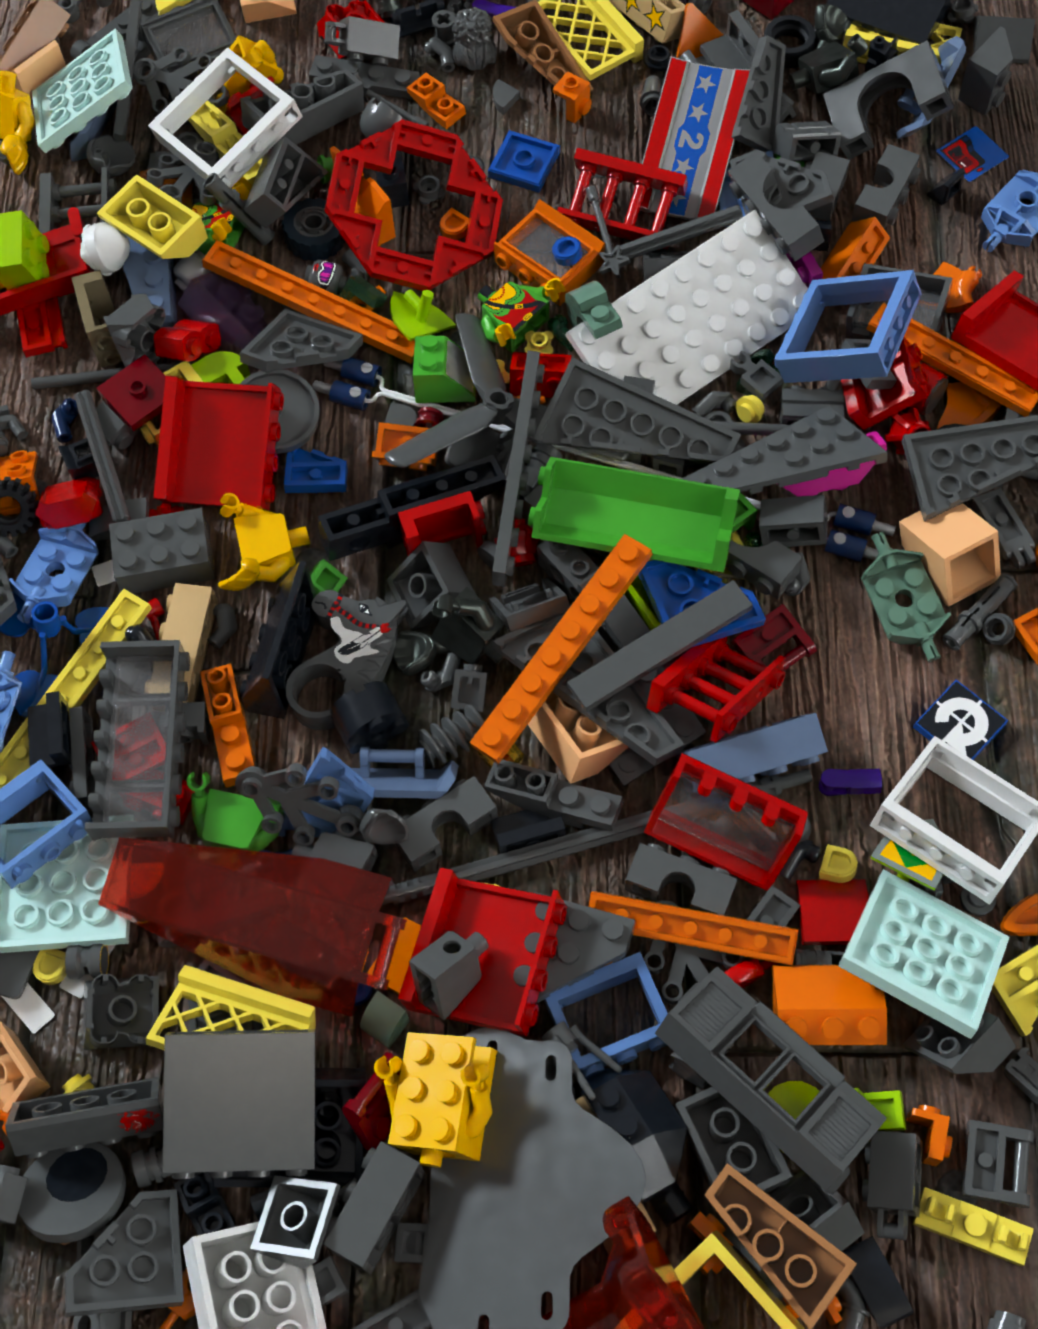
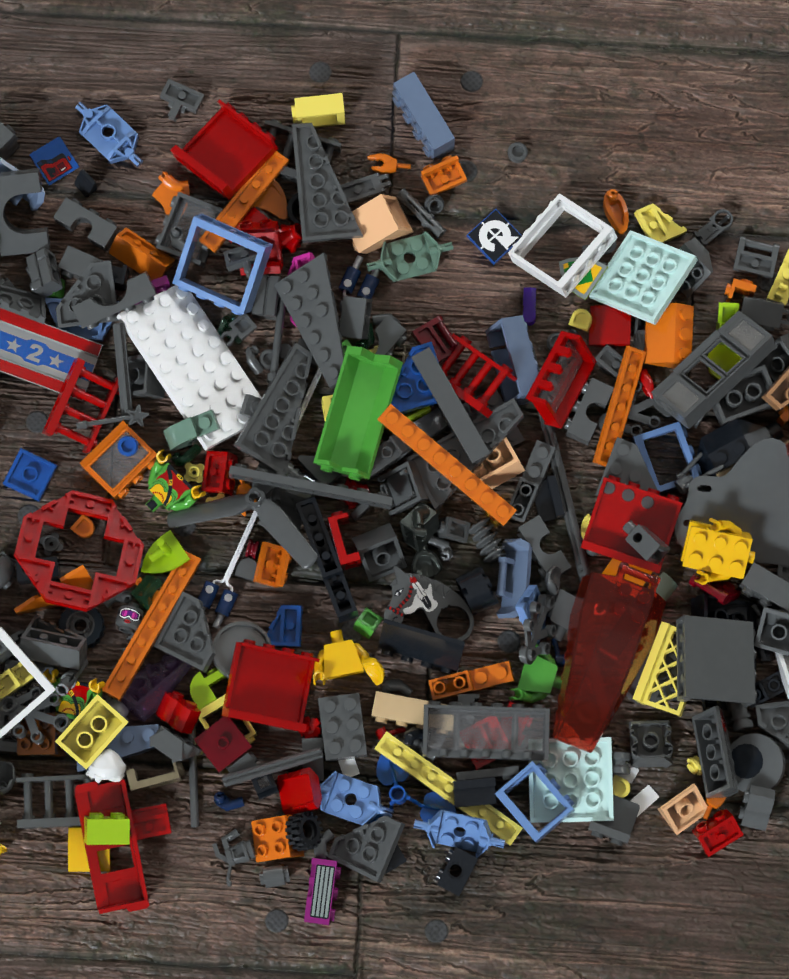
camera: 90 degrees left, 15 degrees up
(327, 163) = (25, 618): bright green plate -> none
(441, 371) = (217, 538): bright green slope -> none
(750, 409) = (261, 336): light yellow plate -> none

